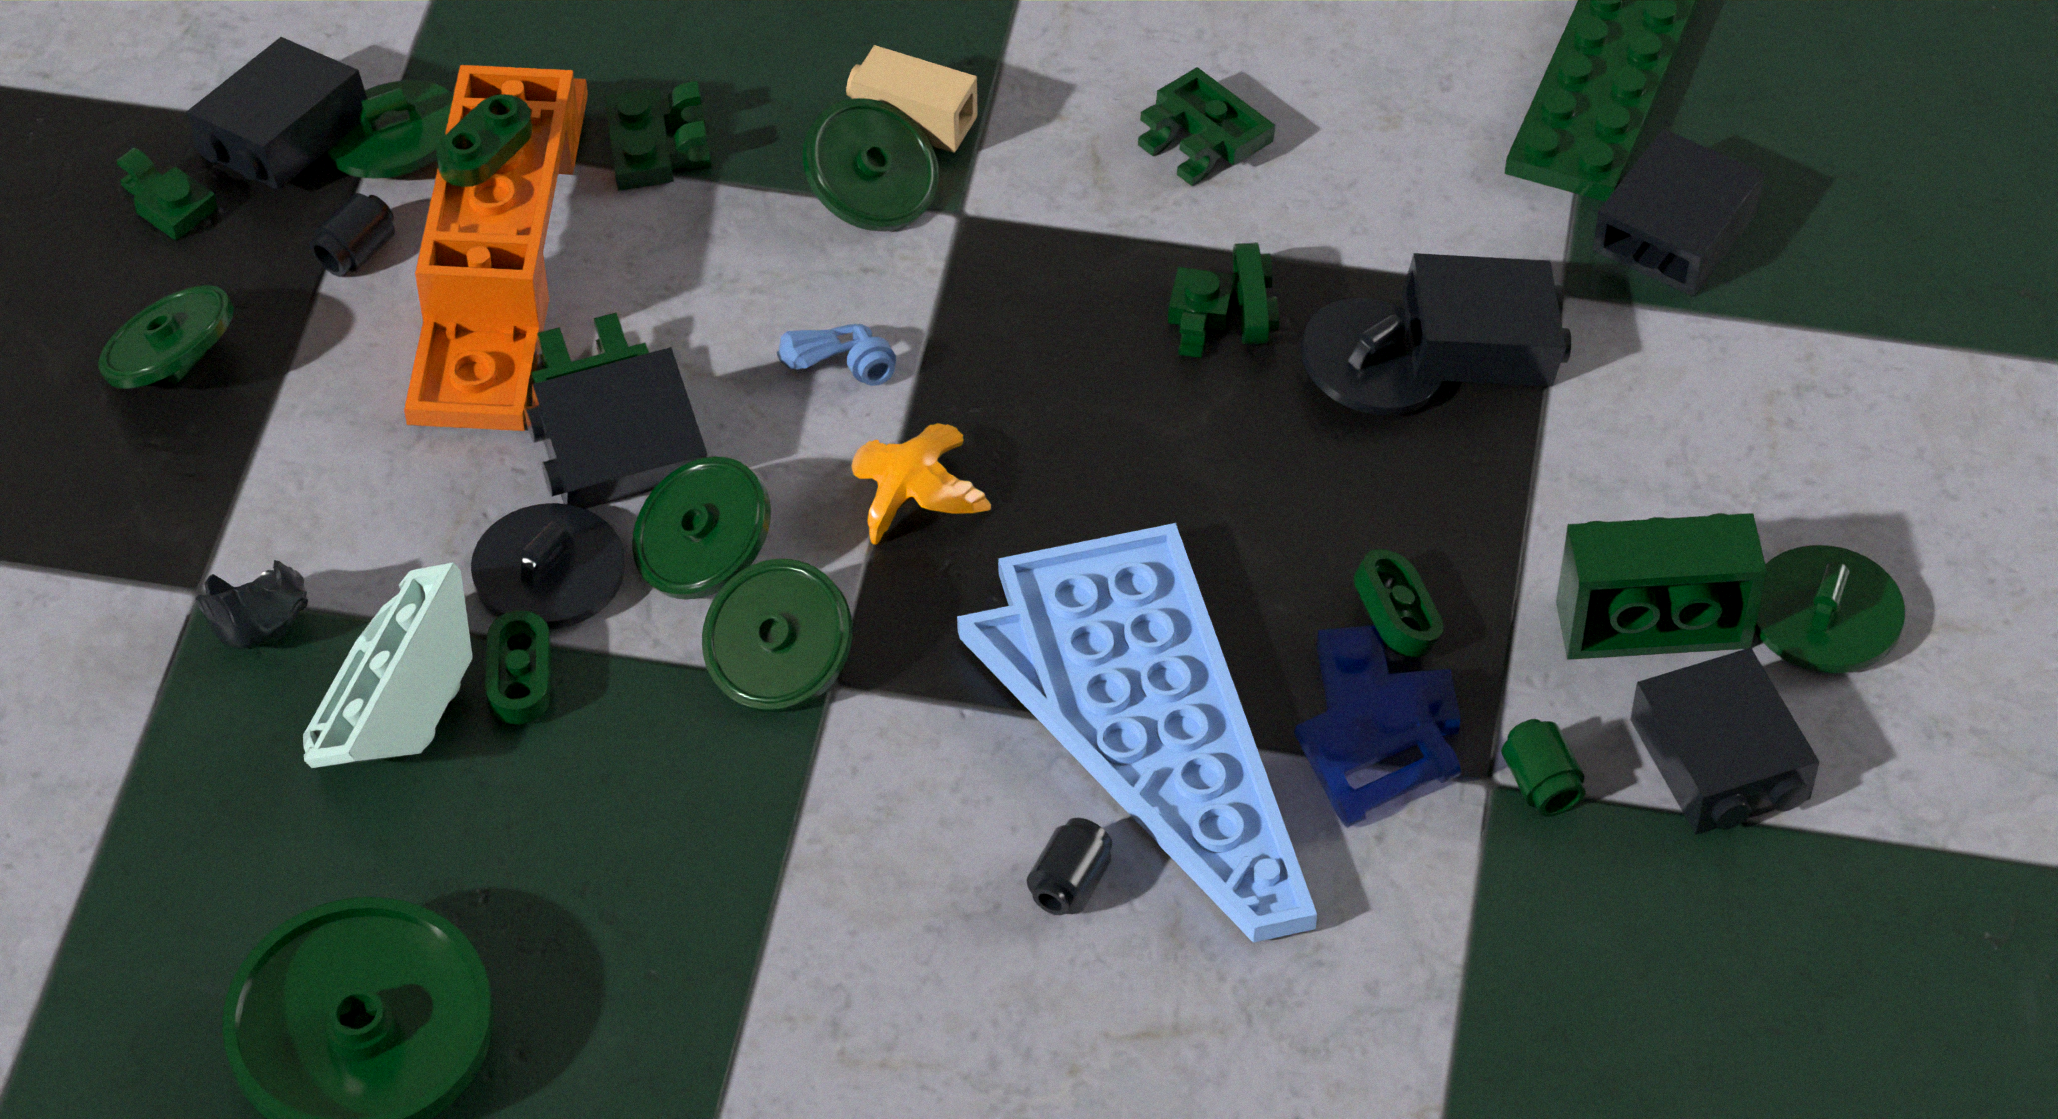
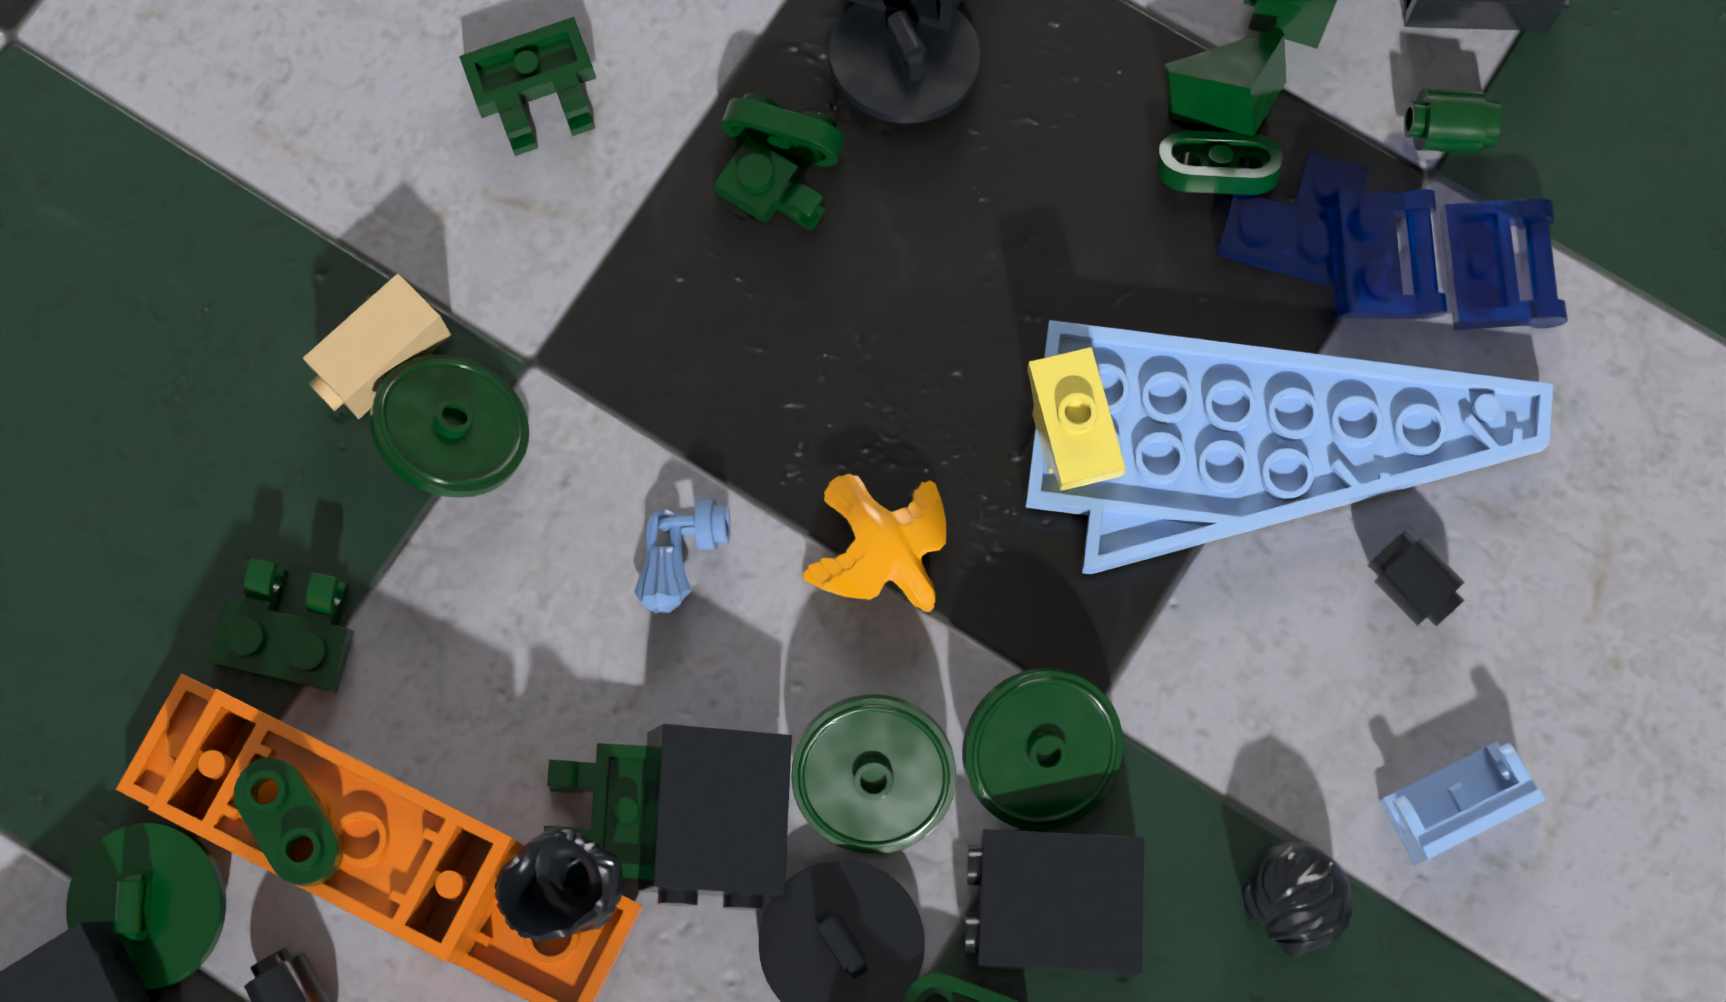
camera: 65 degrees left, 25 degrees up
(508, 333) = (559, 886): none -> black hair
(646, 695) = (1057, 902): none -> black brick
(730, 862) = (1297, 896): none -> black hair
(869, 969) = (1461, 801): none -> light blue hinge
(1077, 540) = (1074, 420): none -> light yellow brick
(1415, 833) = (1484, 267): none -> clear blue plate
(1484, 587) = (1229, 84): none -> dark green slope

